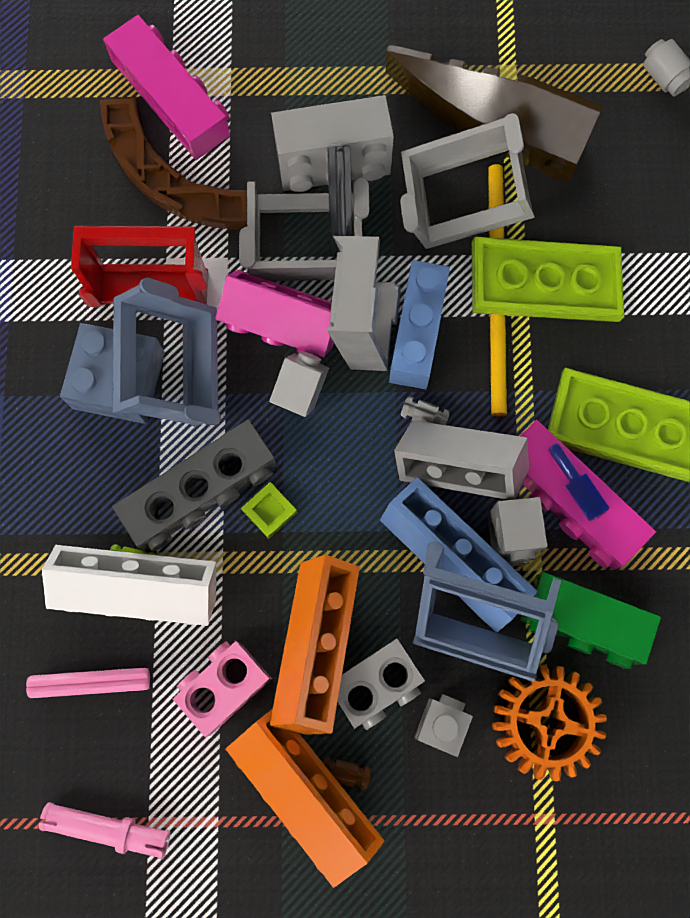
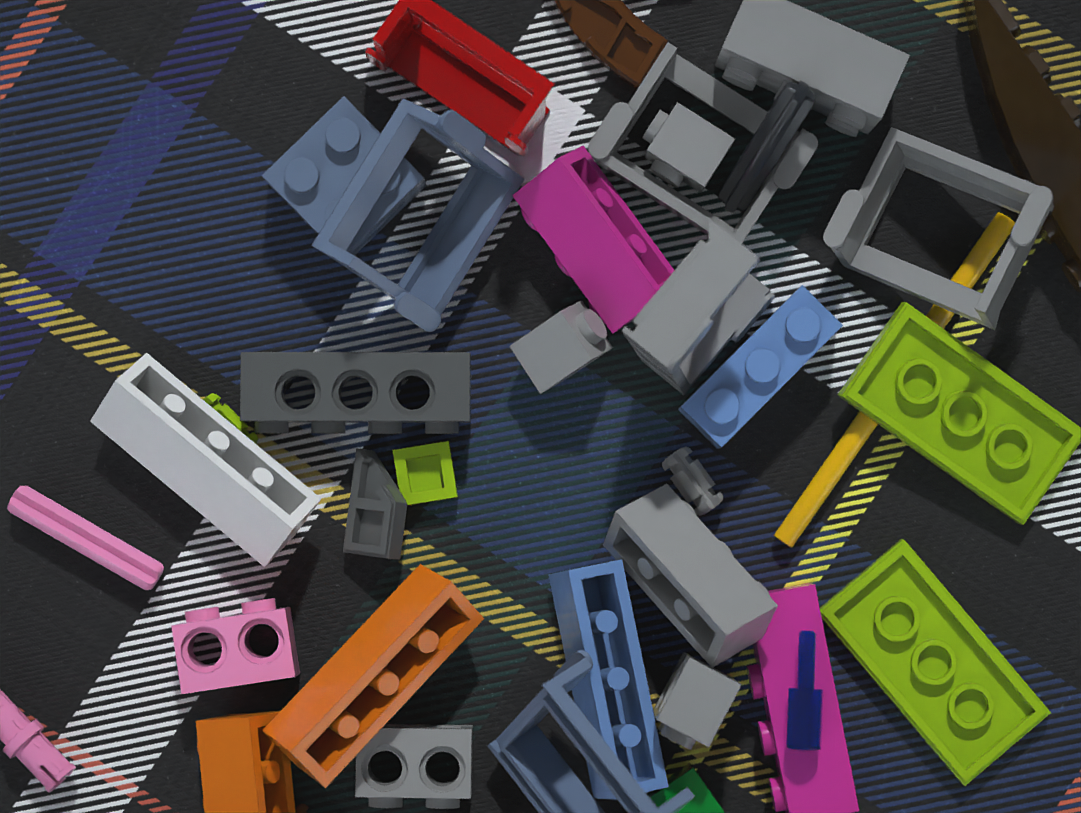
camera: 30 degrees right, 10 degrees up
(253, 550) = (374, 510): none -> dark grey tile
(296, 235) = (685, 147): none -> light grey brick

